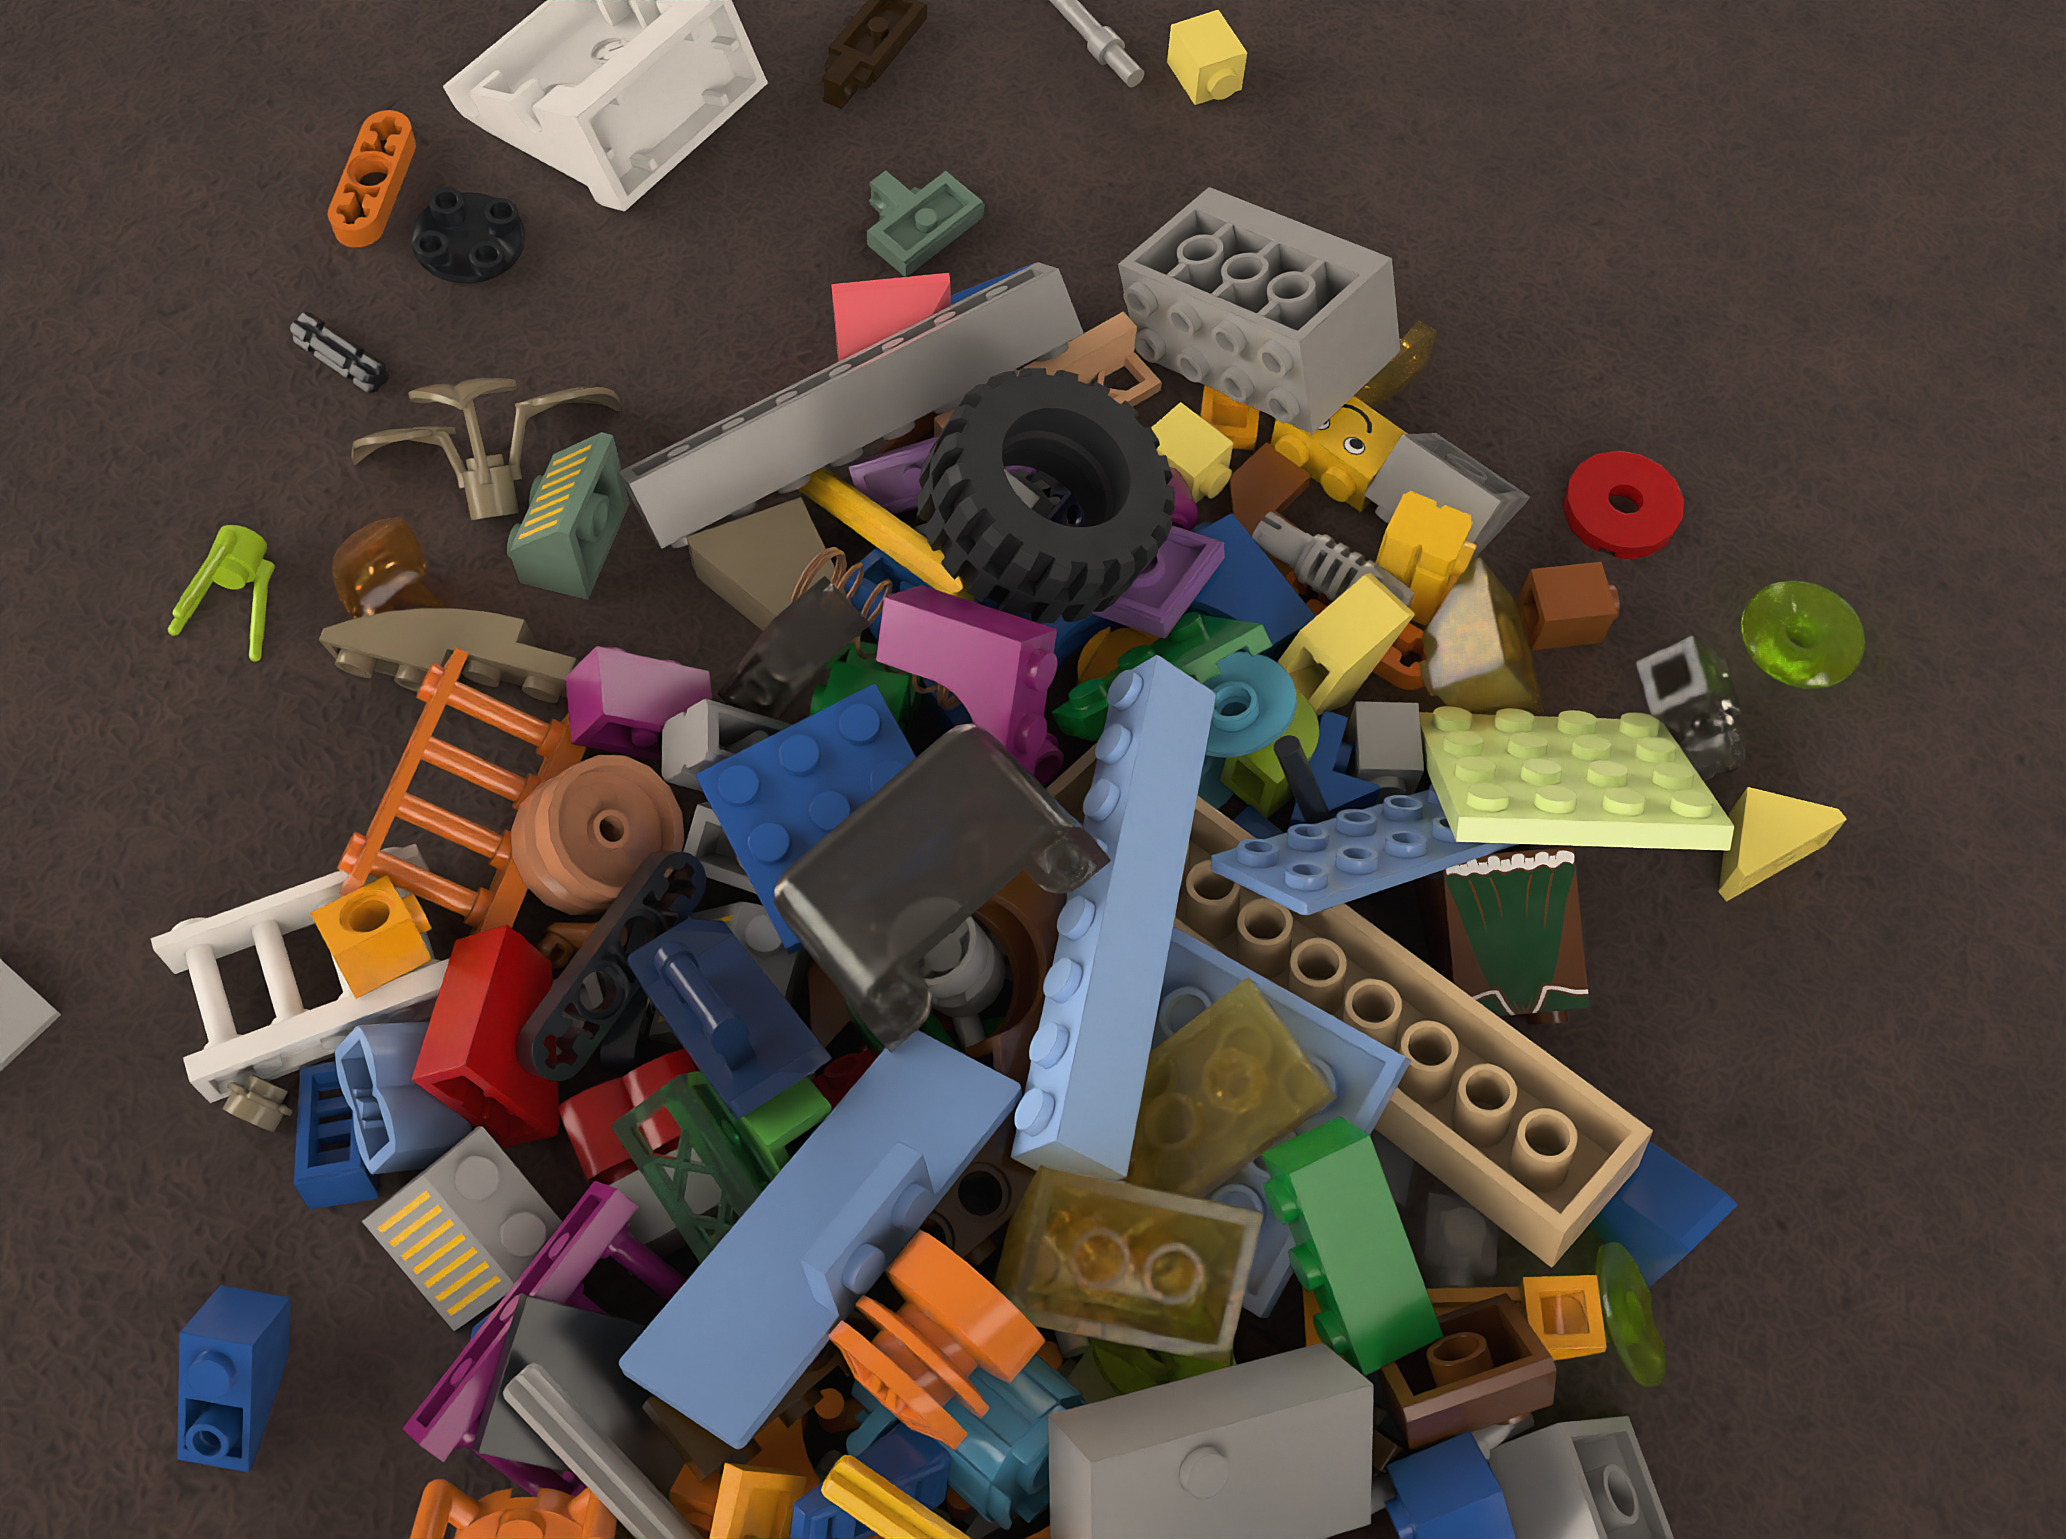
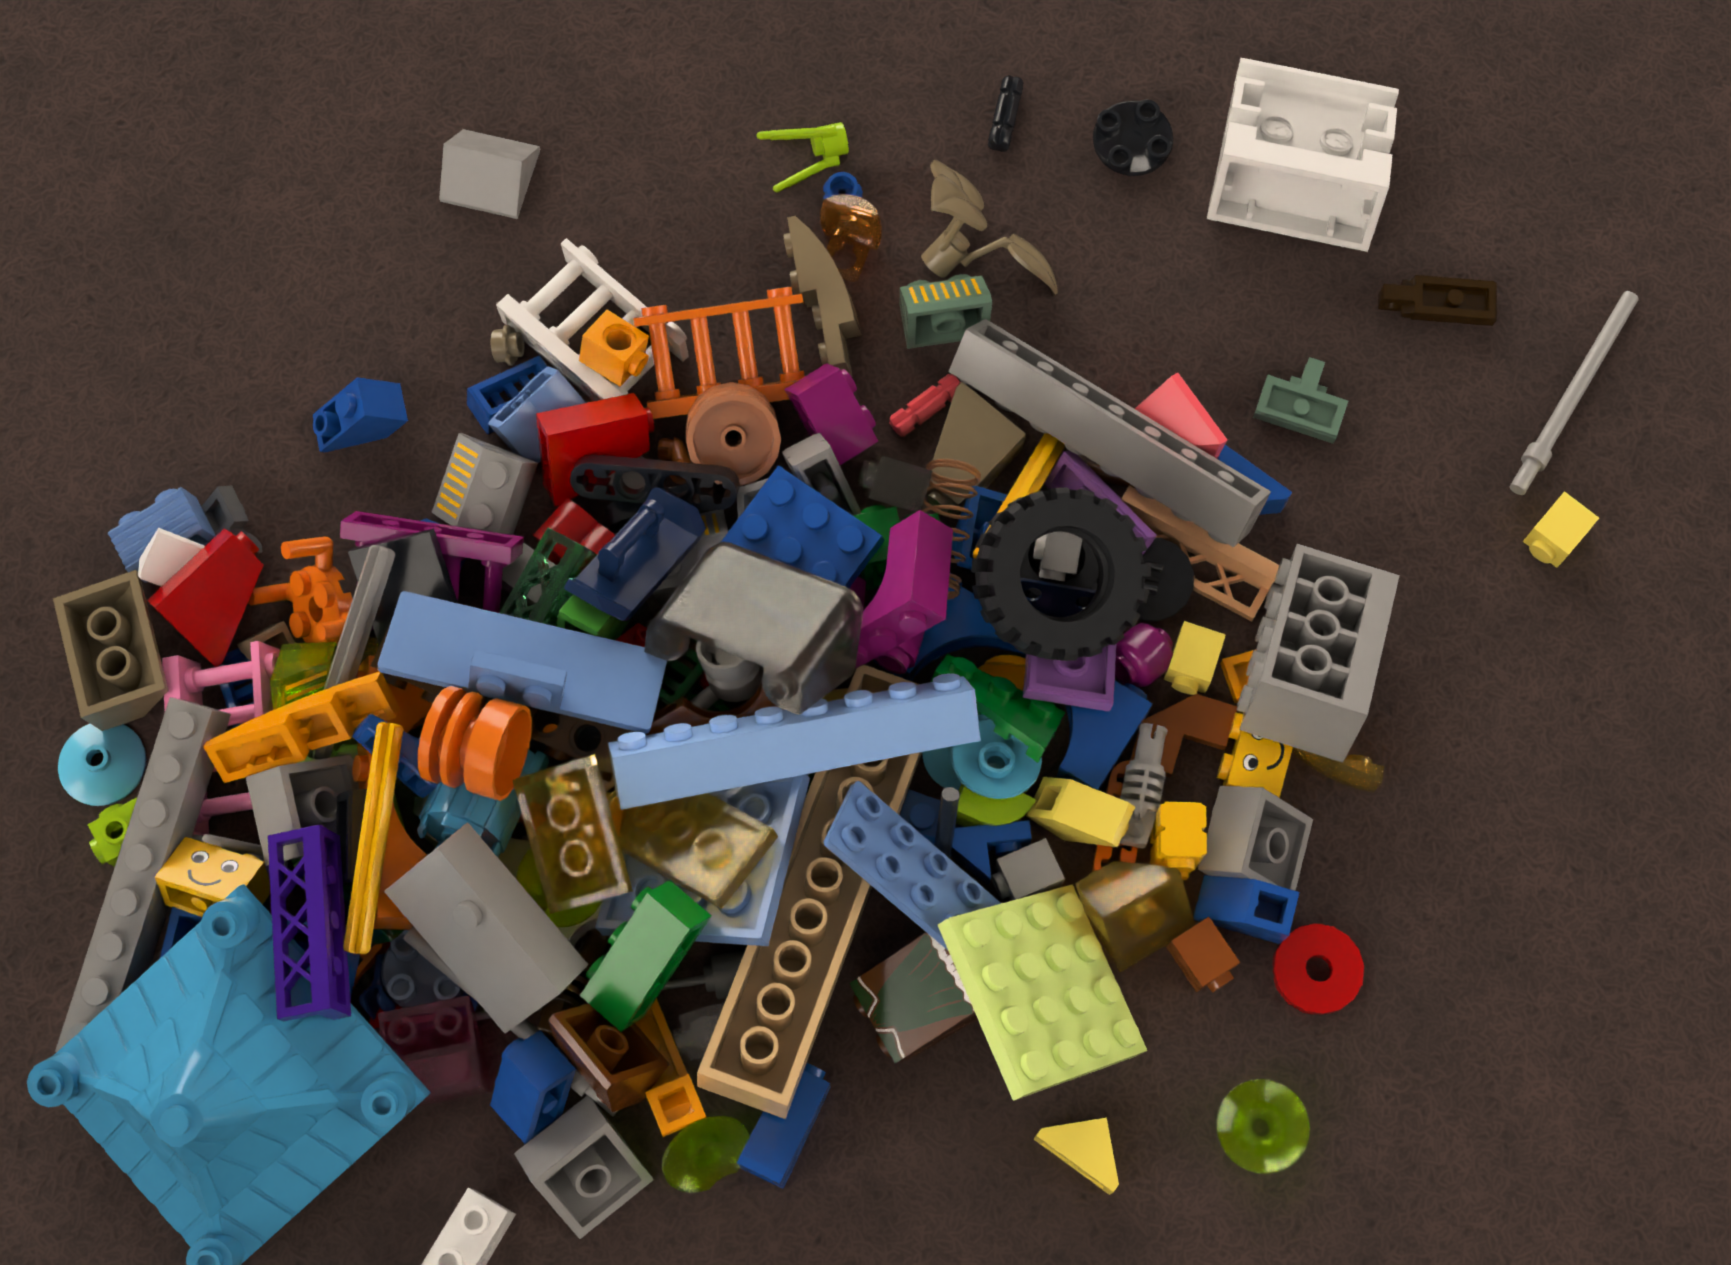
camera: 70 degrees right, 10 degrees up
(303, 570) = (842, 182): none -> blue plate
(367, 158) = (1157, 43): orange beam -> none
(683, 607) = (924, 405): none -> coral axle
(1534, 524) = (1247, 906): none -> blue slope
(1695, 695) = (1169, 1067): clear smoke brick -> none

